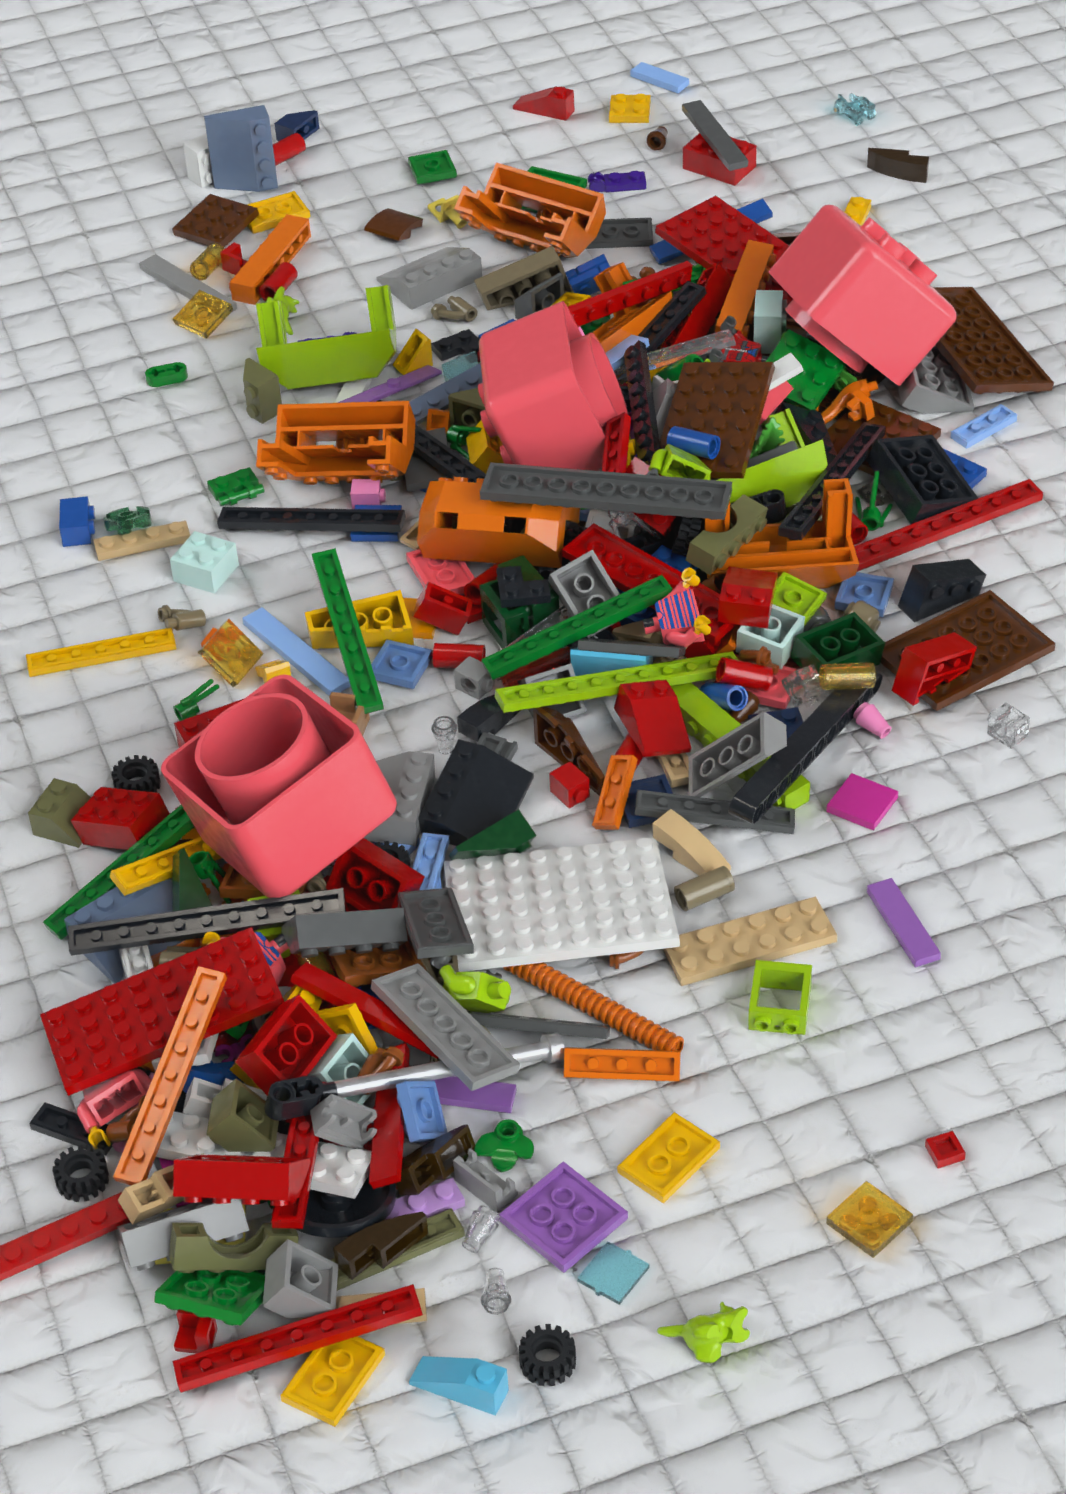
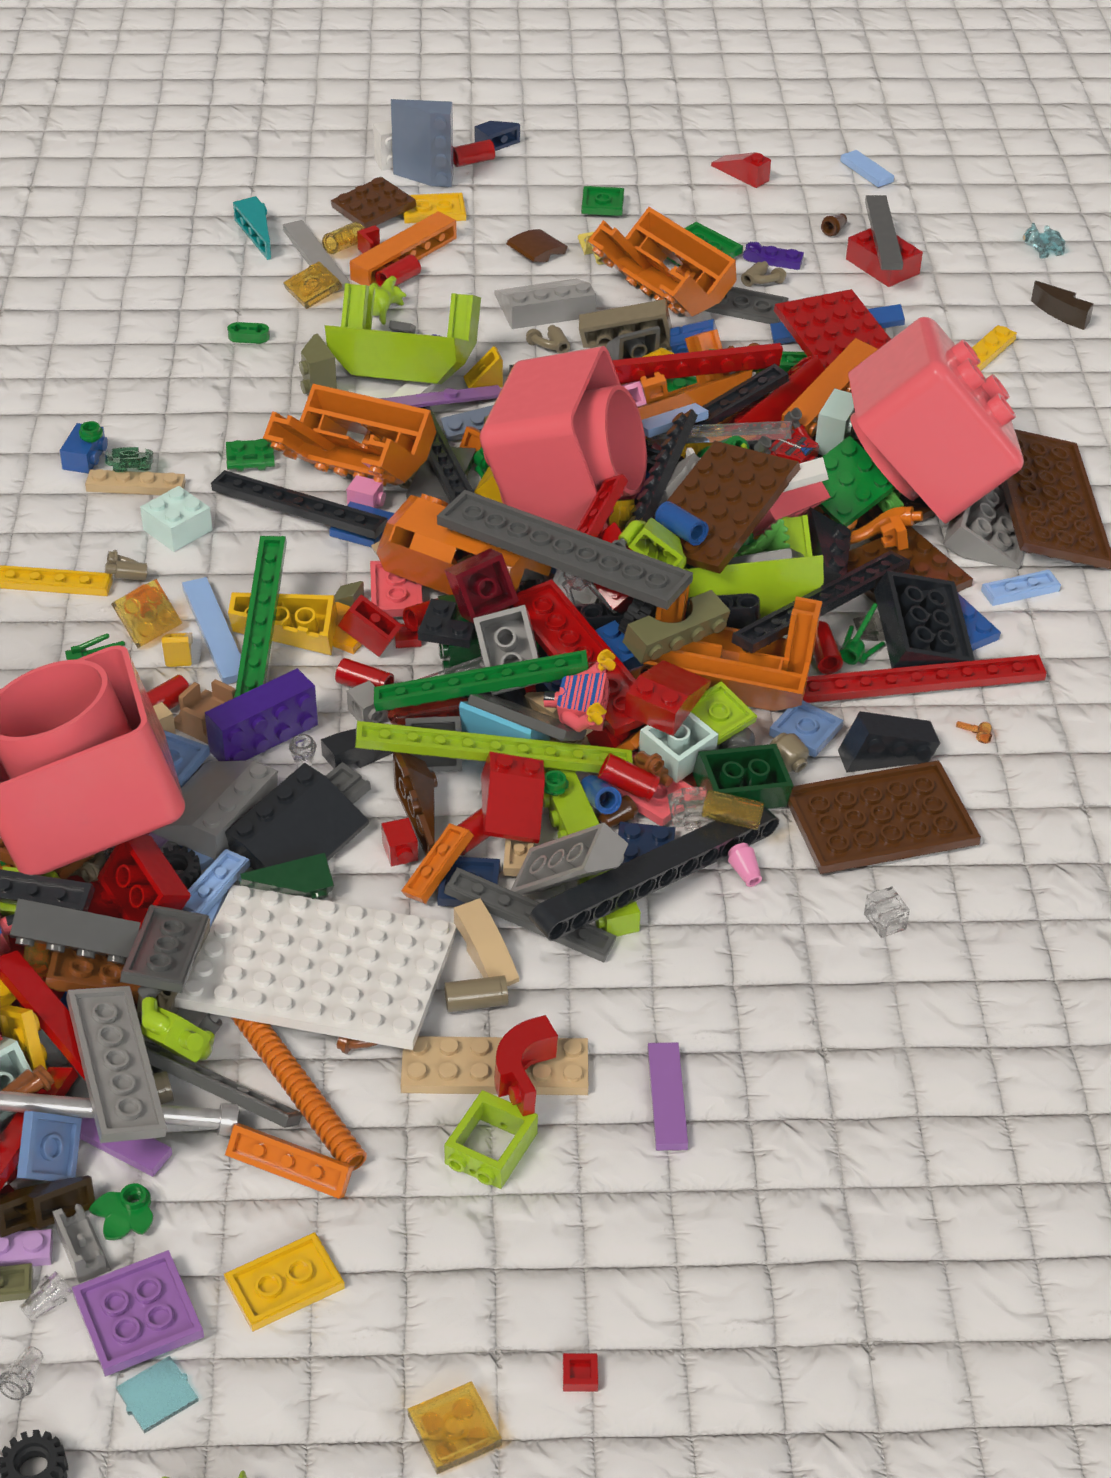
camera: 15 degrees right, 0 degrees up
(82, 503) = (90, 431): none -> green plate
(111, 267) = (251, 217): none -> teal slope
(311, 333) = (402, 327): none -> dark grey tile
(397, 709) = (262, 717): none -> dark purple brick
(401, 663) = (310, 661): medium blue plate -> none
(402, 583) = (349, 593): none -> olive slope
(513, 622) = (425, 655): dark green panel -> none
(542, 543) = (481, 585): none -> dark red brick
(596, 326) = (654, 388): none -> orange tile
(612, 197) = (757, 275): none -> dark tan plant
(629, 108) = (822, 190): yellow plate -> none
(685, 696) = (555, 783): none -> green plate
(775, 913) = (518, 1049): none -> red arch
(862, 801) = (692, 949): dark pink tile -> none
(931, 663) = (831, 821): red wedge -> none
(1013, 556) = (983, 730): none -> clear orange hand

